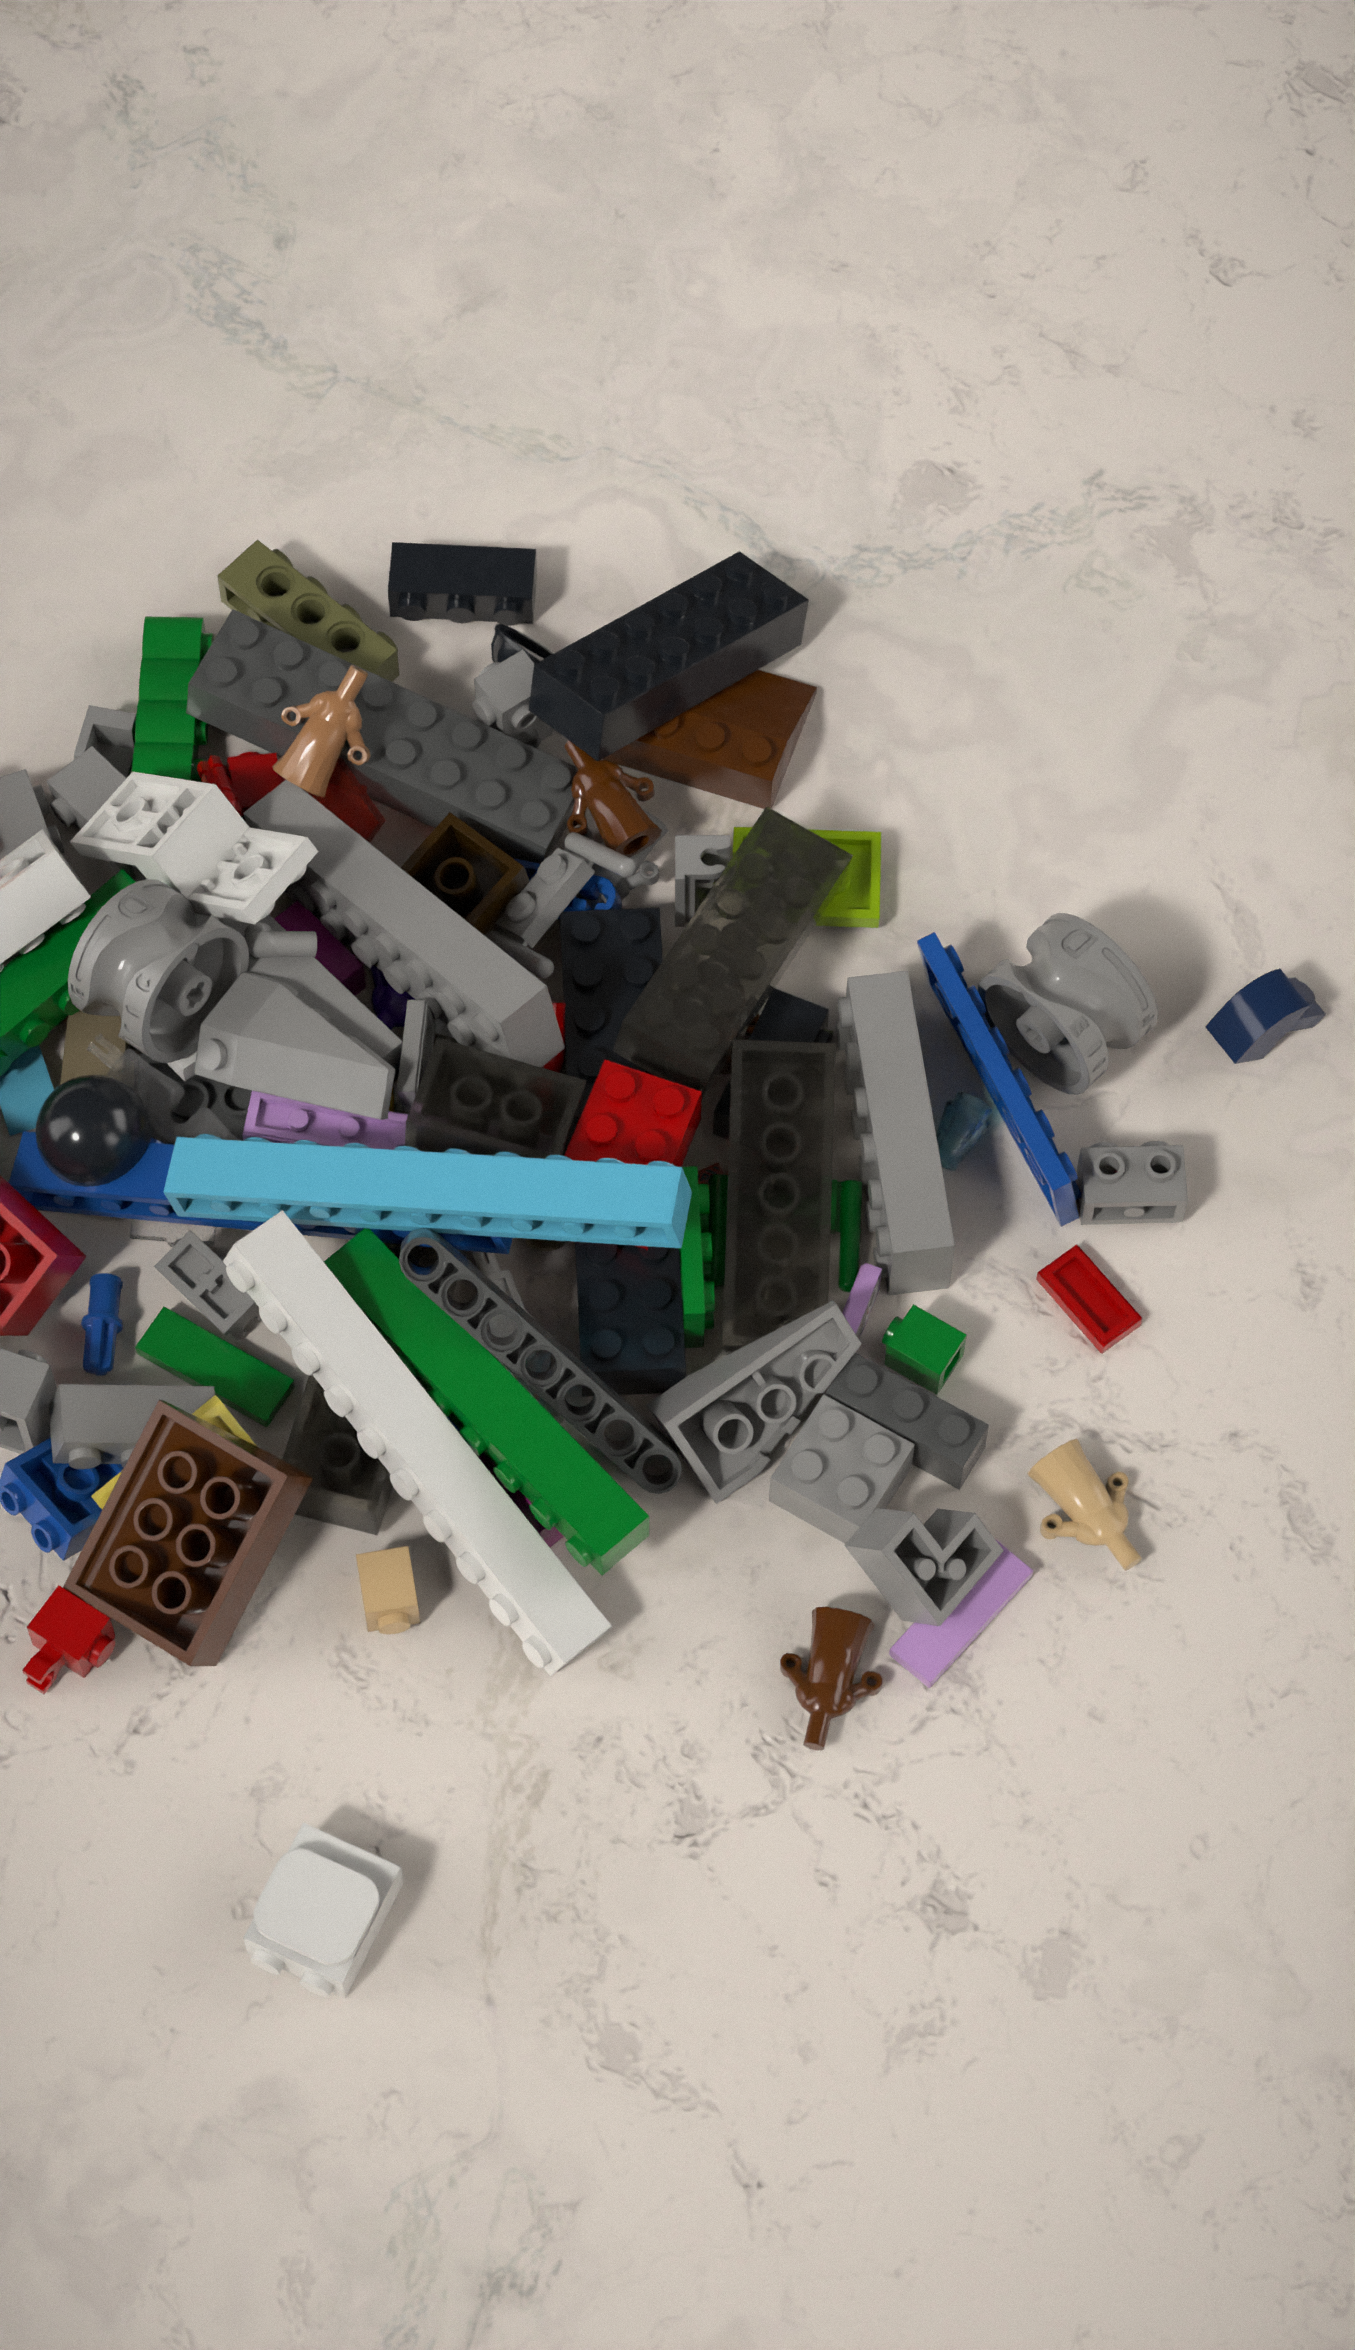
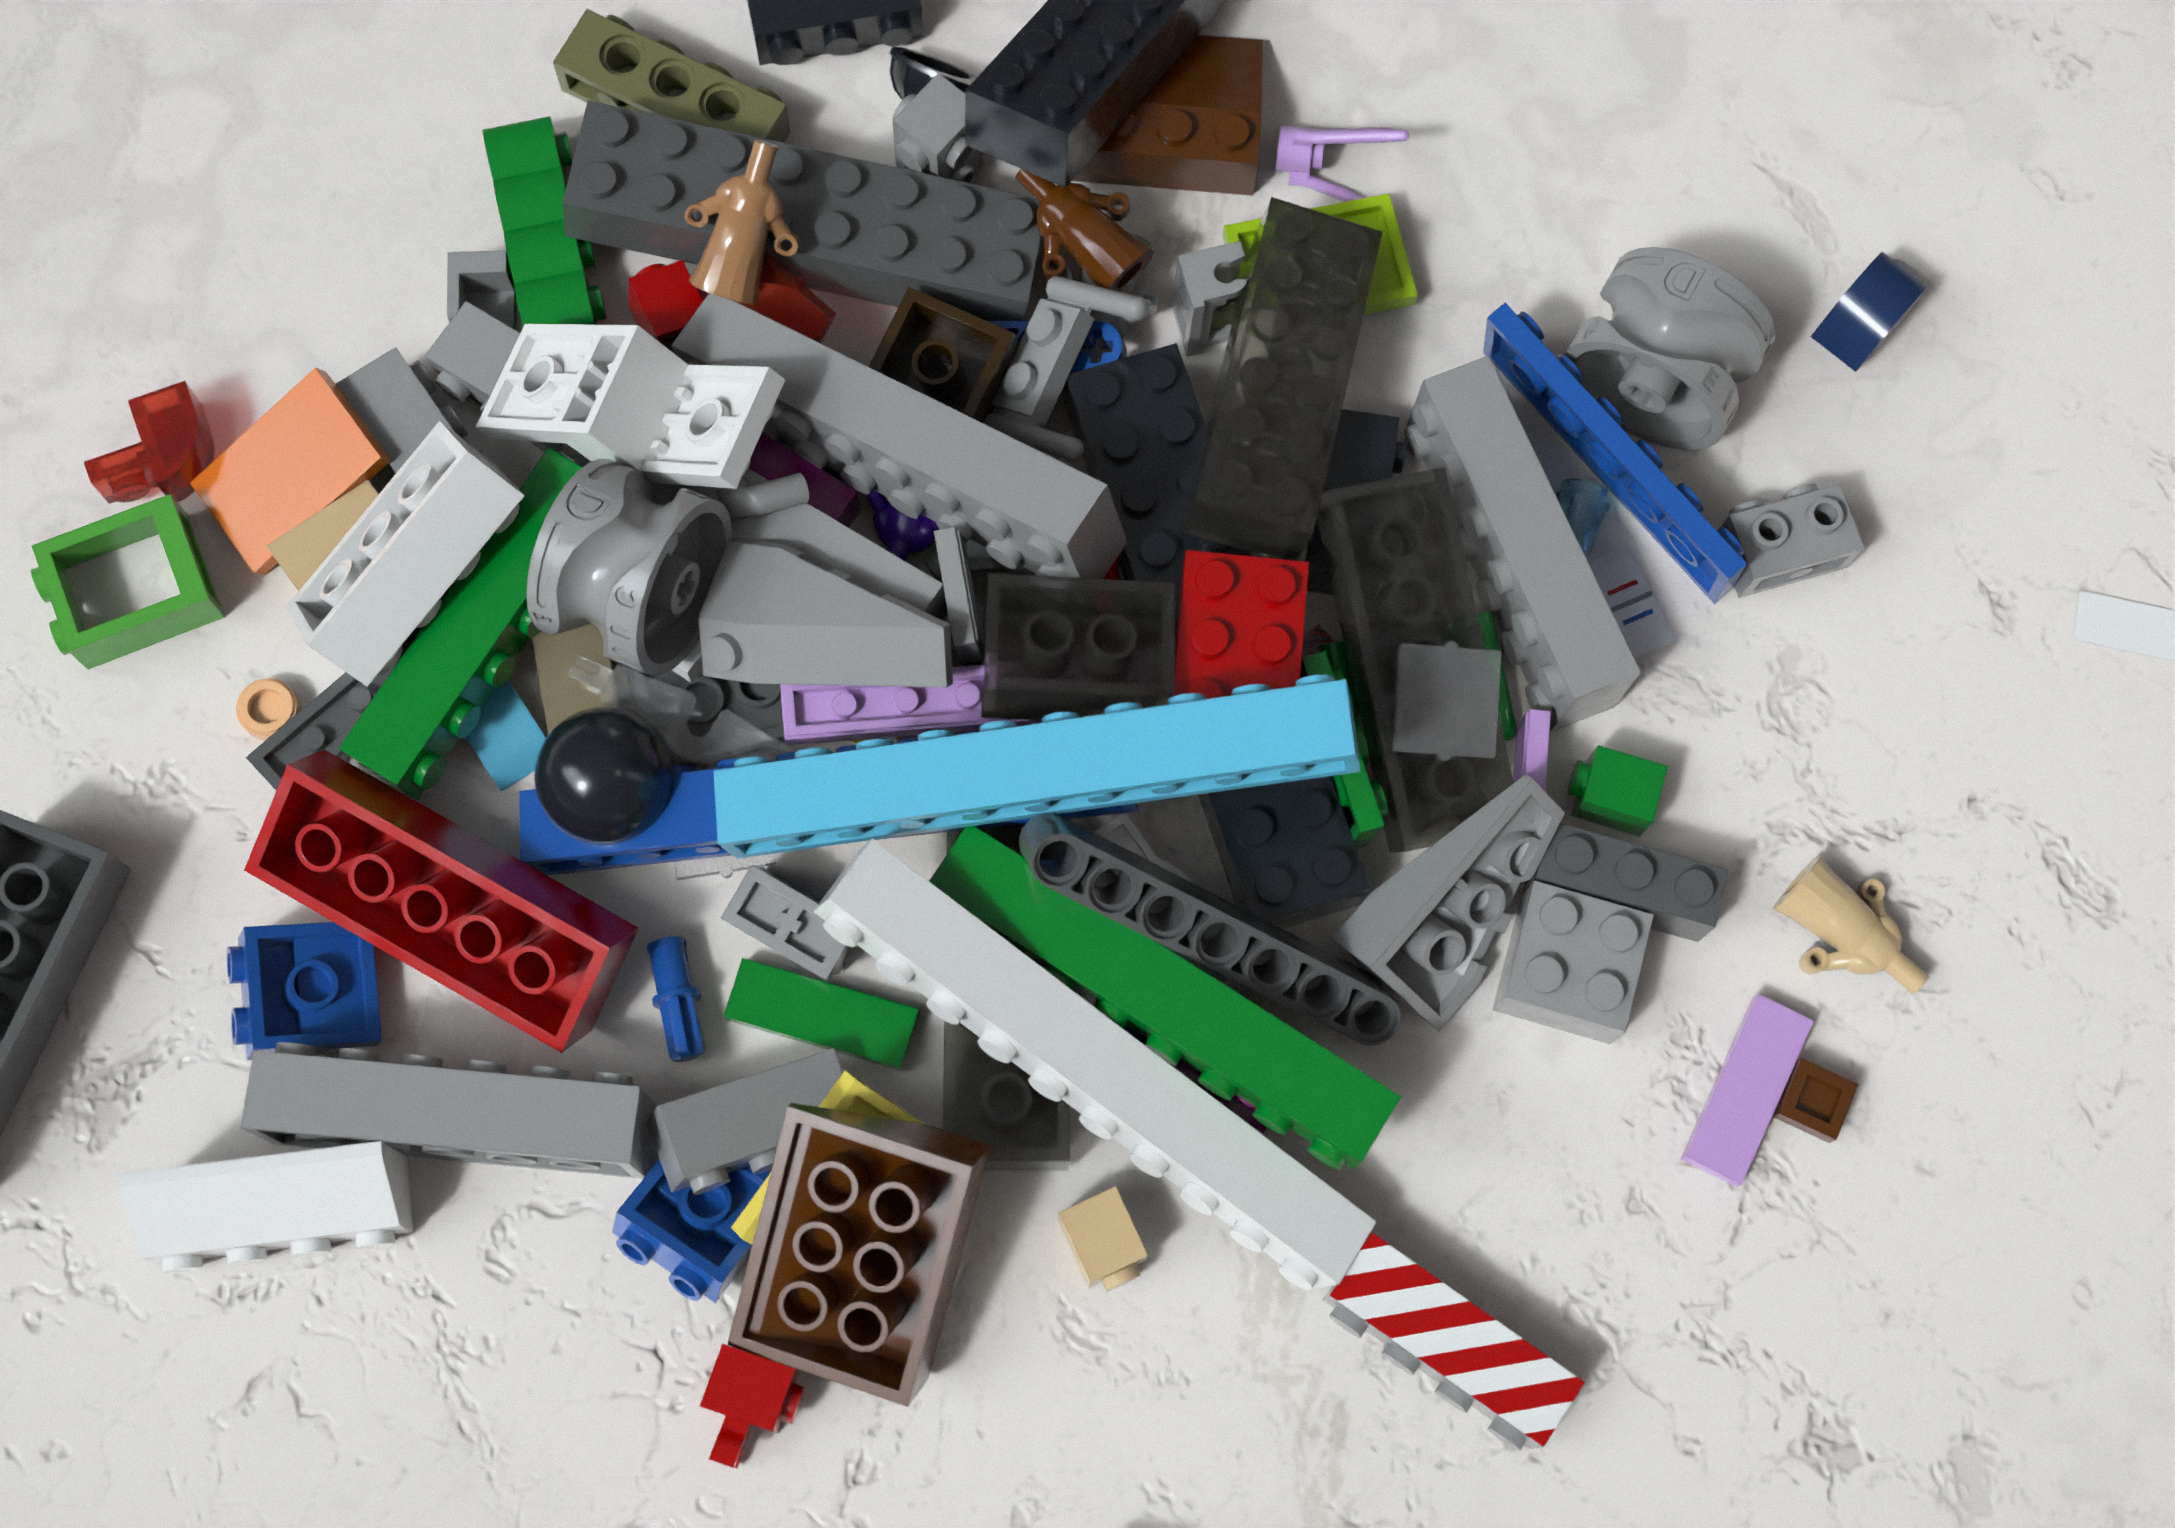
camera: 20 degrees left, 10 degrees up
(216, 773) = (623, 309): red axle -> none
(647, 1740) = (1453, 1343): none -> brick
(787, 1231) = (1447, 701): none -> clear piece
(823, 782) = (1304, 149): none -> lavender plant
(833, 1660) = (1629, 1196): reddish brown piece -> none
(925, 1566) = (1707, 1051): light grey brick -> none
(988, 1208) = (1632, 602): none -> white sticker
(1013, 1632) = (1815, 1100): none -> reddish brown plate
(1089, 1299) = (1774, 682): red tile -> none

